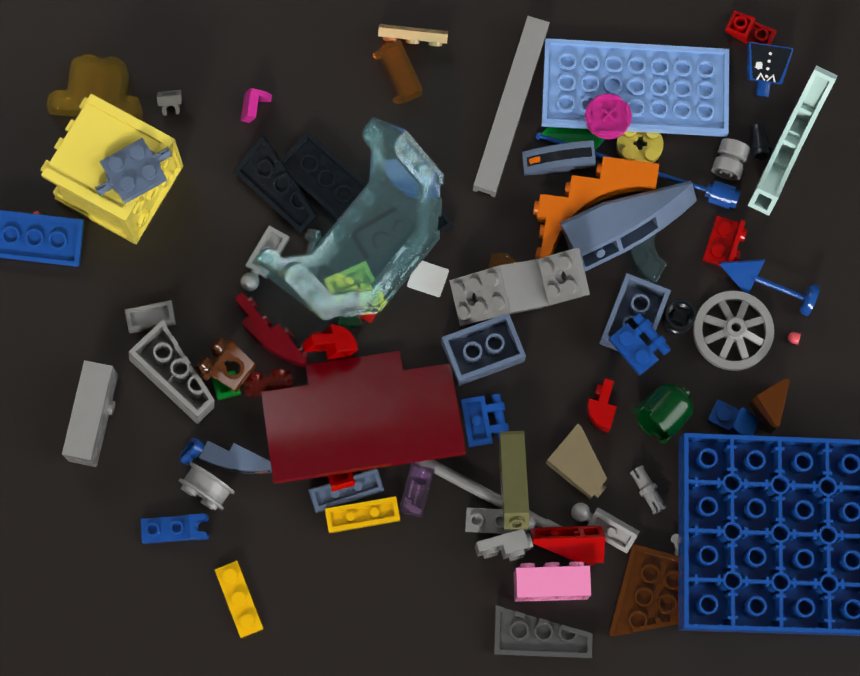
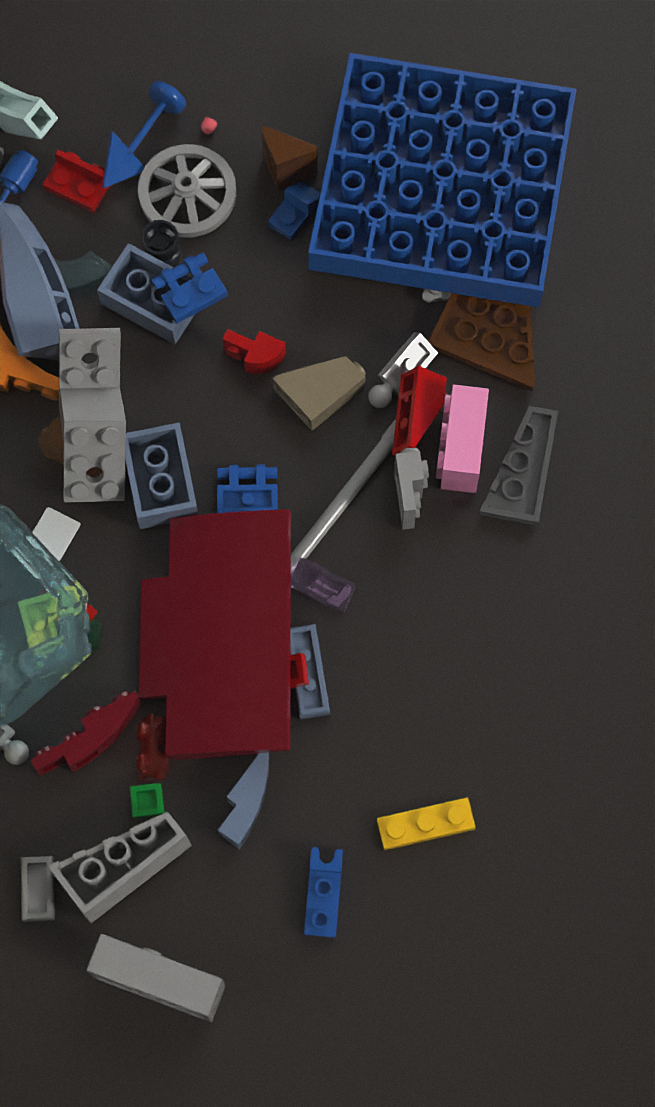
camera: 75 degrees left, 5 degrees down
(191, 451) = (225, 855): blue tile -> none
(206, 486) = (277, 839): light grey wheel -> none
(225, 350) = (114, 802): reddish brown piece -> none
(334, 340) = (115, 654): red brick -> none
(362, 514) = (342, 655): yellow plate -> none
(489, 521) = (376, 493): light grey plate -> none
(513, 480) = (333, 458): olive slope -> none
(648, 489) = (364, 316): light grey pin -> none
(664, 411) = (275, 279): dark green cylinder -> none

